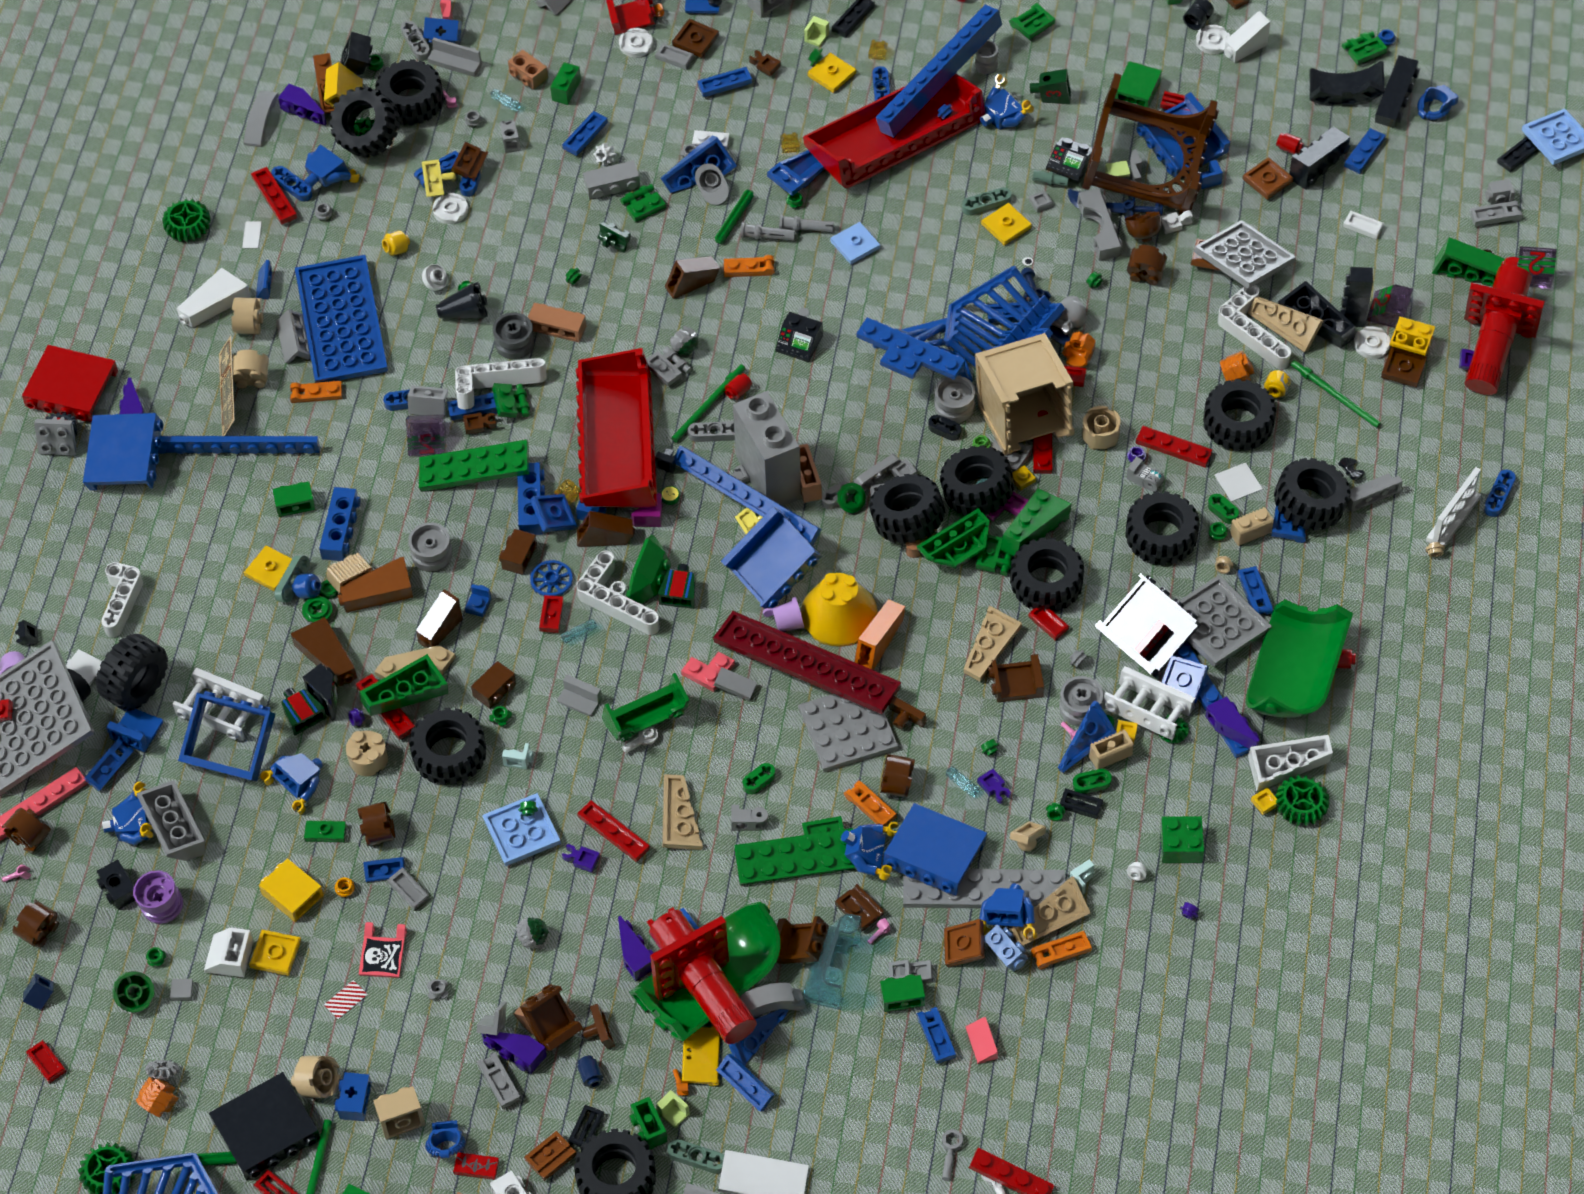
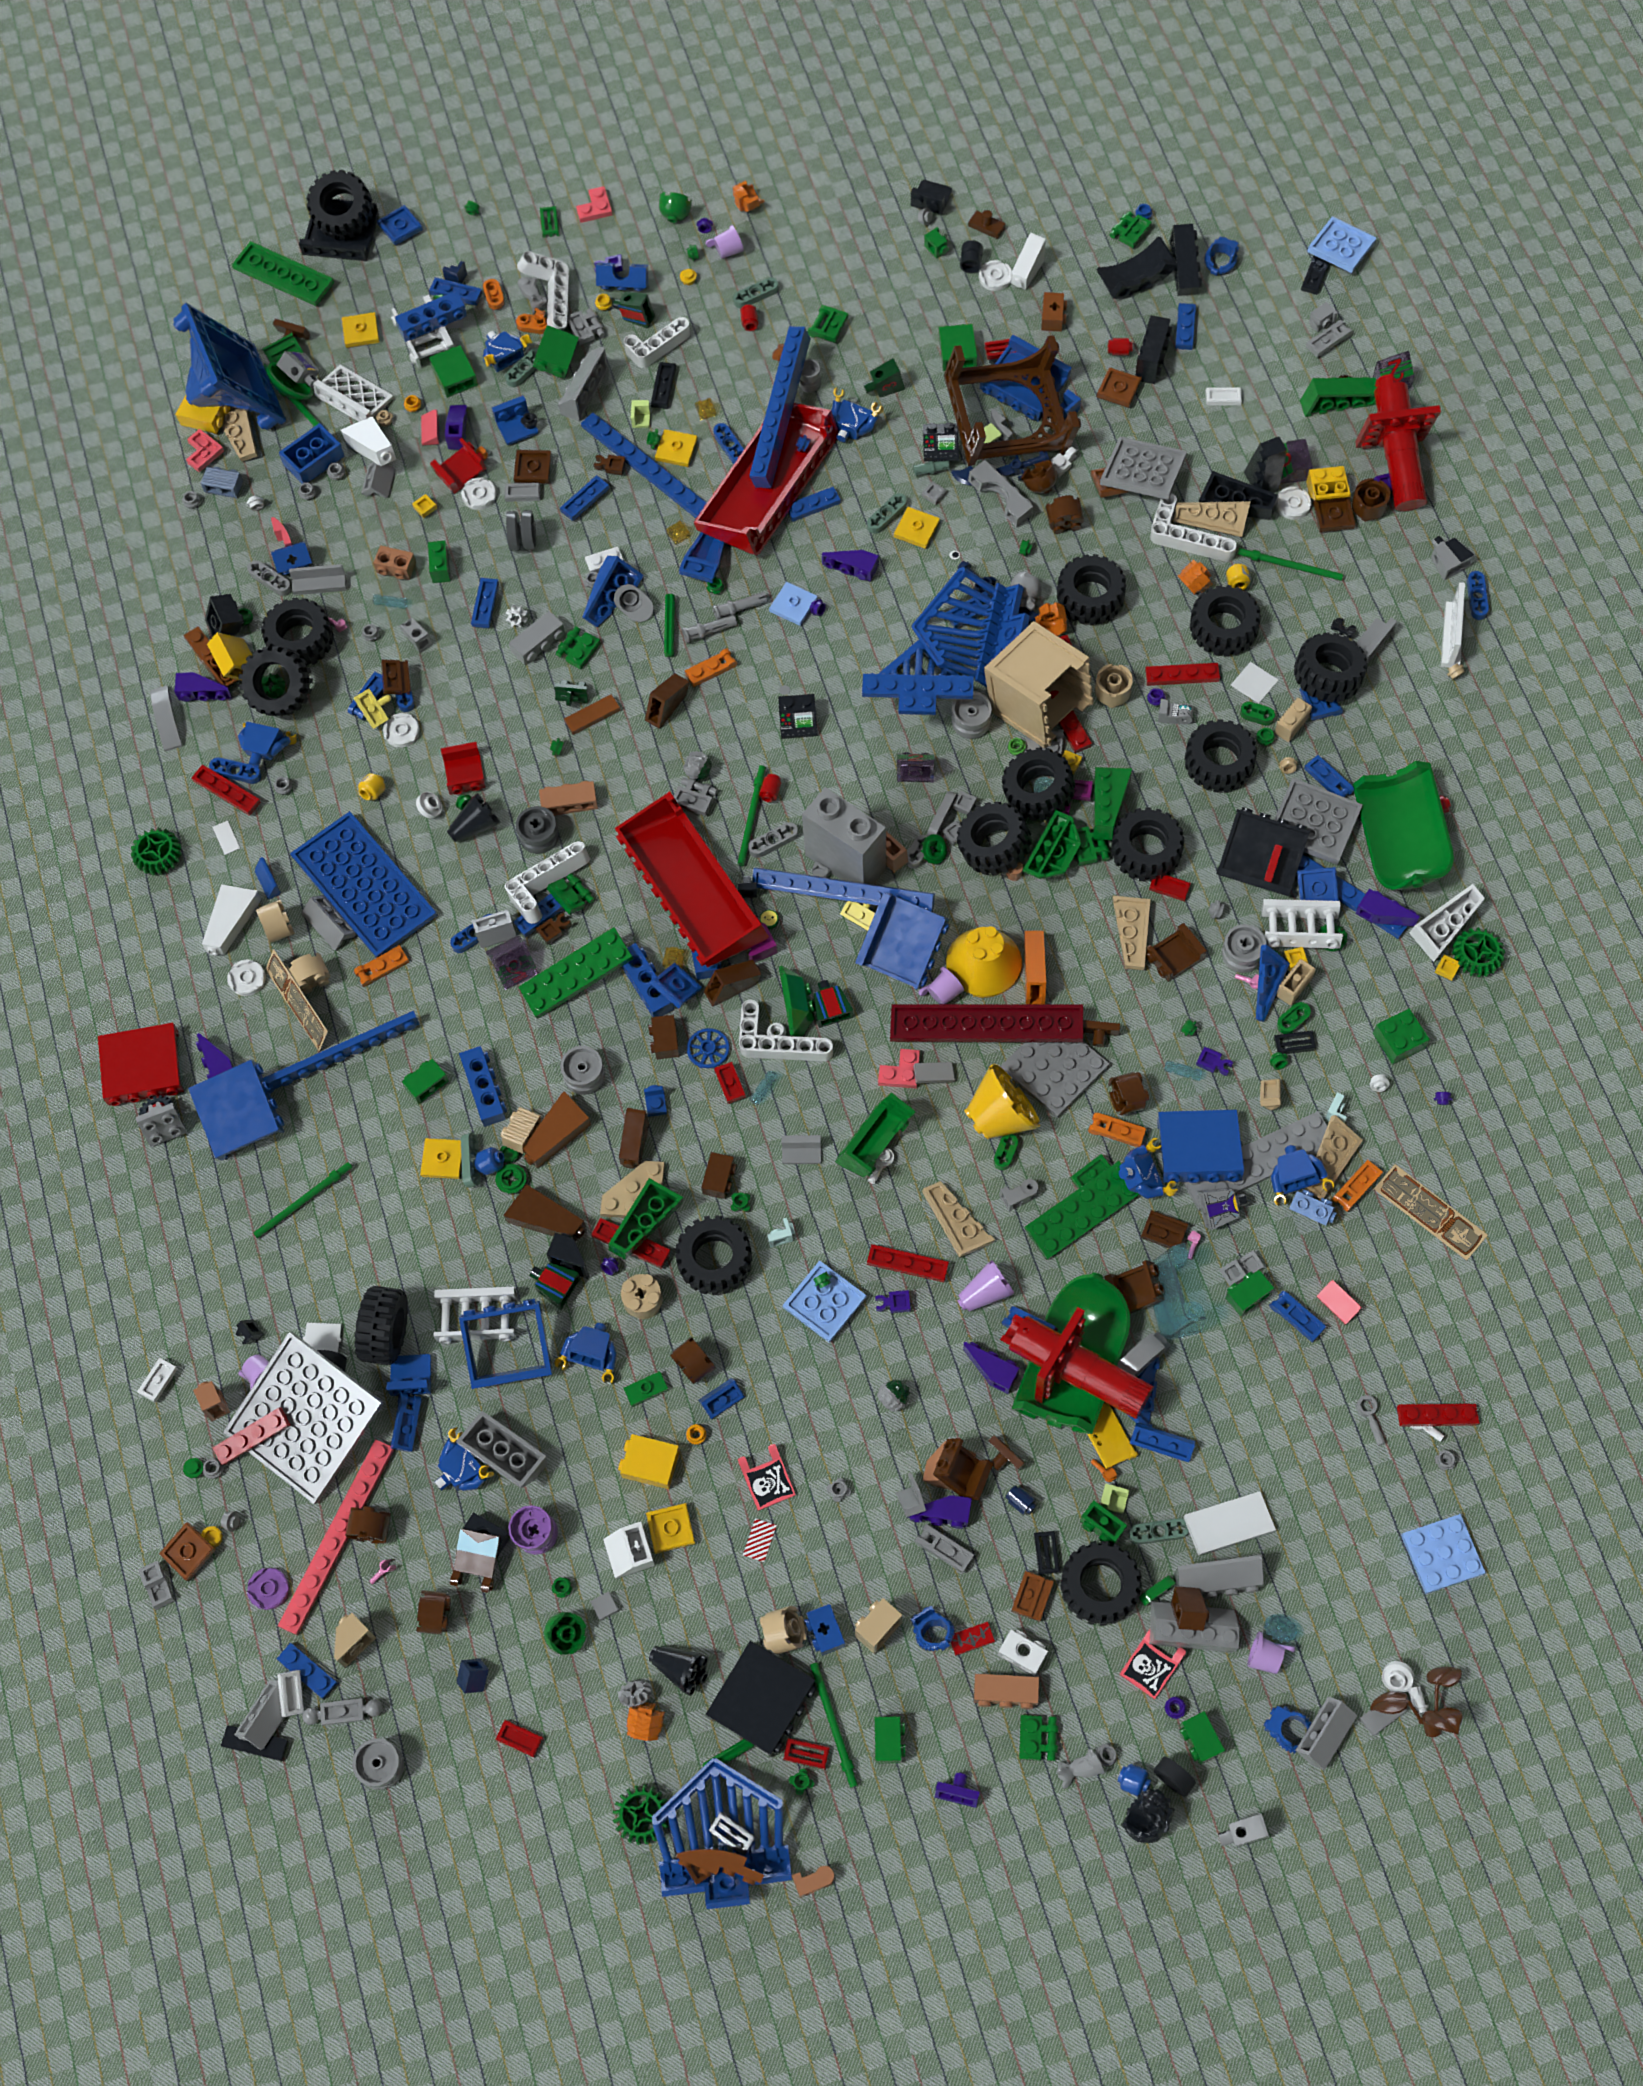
camera: 25 degrees left, 10 degrees up
(98, 897) = (476, 1556): none -> flag
(121, 577) = (318, 1257): white beam -> none
(172, 542) = (334, 1176): none -> green bar
(199, 353) = (246, 977): none -> white tile
(213, 1067) = (681, 1667): none -> black cone
(408, 888) = (755, 1407): light grey tile -> none
(483, 260) = (463, 768): none -> red panel
(582, 33) = (424, 506): none -> yellow plate
(621, 262) = (592, 714): none -> dark orange tile
(650, 84) = (522, 531): none -> dark grey wheel
(667, 881) = (985, 1288): none -> lavender cone
(774, 732) = (1000, 1107): none -> yellow cone
(793, 72) = (644, 465): none -> blue plate
(874, 254) = (818, 607): none -> dark purple plate
(876, 422) = (915, 767): none -> clear purple slope
(922, 907) = (1220, 1206): none -> torso
(925, 167) = (814, 504): none -> blue plate
(930, 230) = (853, 562): none -> dark purple slope
(944, 428) = (975, 745): black beam -> none
(964, 943) = (1274, 1220): dark orange plate -> none
(1118, 1004) = (1430, 1212): none -> sticker
(1131, 356) = (1095, 570): none -> black tyre
(1246, 89) = (1053, 311): none -> dark orange brick
(1445, 367) = (1370, 499): none -> reddish brown brick
(1493, 448) = (1450, 557): none -> light grey torso

